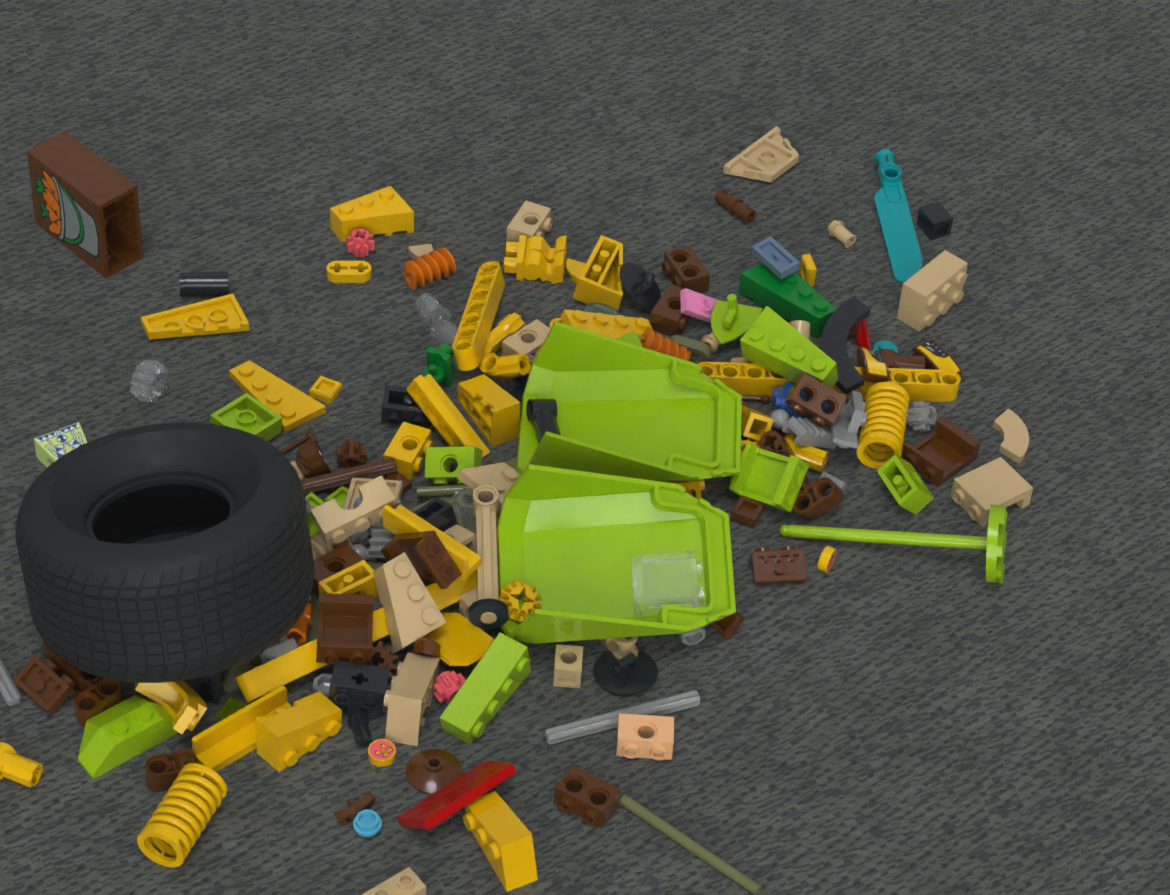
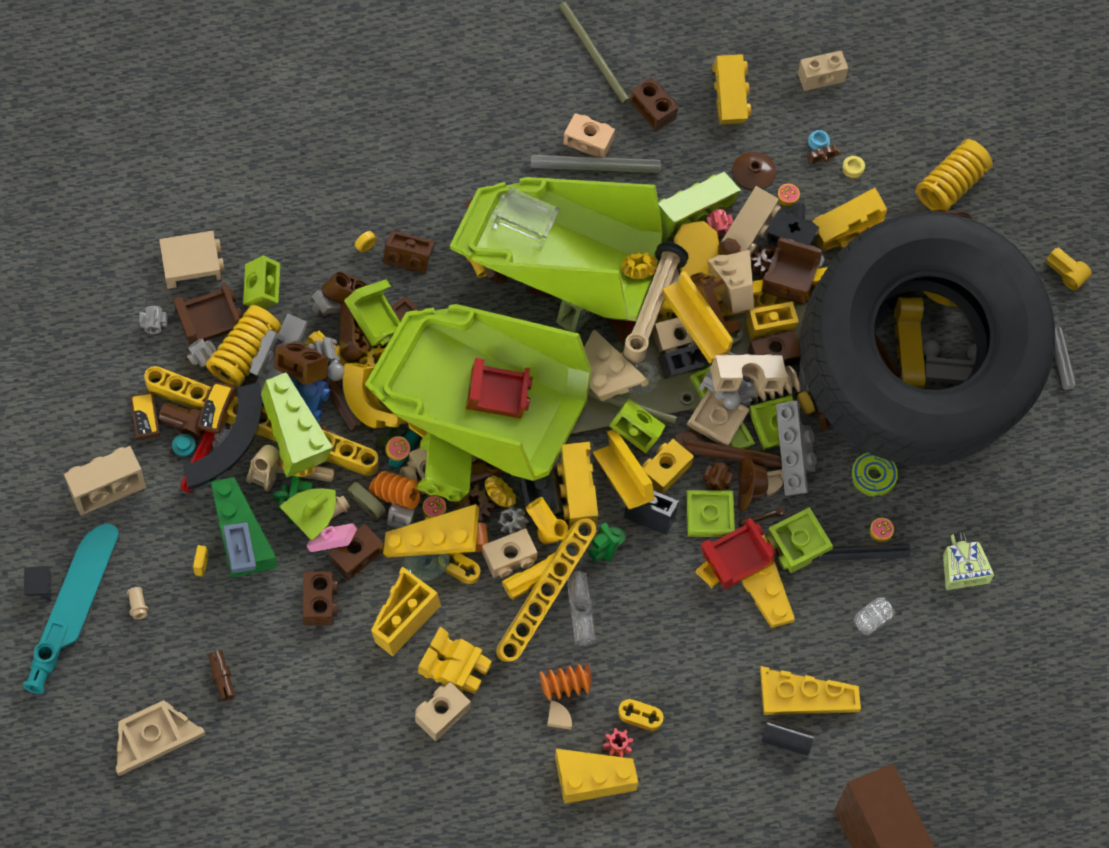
camera: 160 degrees left, 20 degrees up
(307, 391) = (738, 554): none -> red panel
(313, 809) = (853, 166): none -> light yellow tile
(345, 425) = (709, 513): none -> lime plate
(456, 795) = (749, 129): red tile -> none
(543, 414) = (544, 437): black piece -> none
(574, 269) = (419, 643): yellow tile -> none
(616, 434) = (498, 390): none -> red panel
(640, 285) = (373, 587): black shield -> none
(988, 430) = (153, 319): none -> light grey gear
(994, 543) = (233, 185): lime piece -> none
(1014, 435) = (127, 317): tan tile -> none

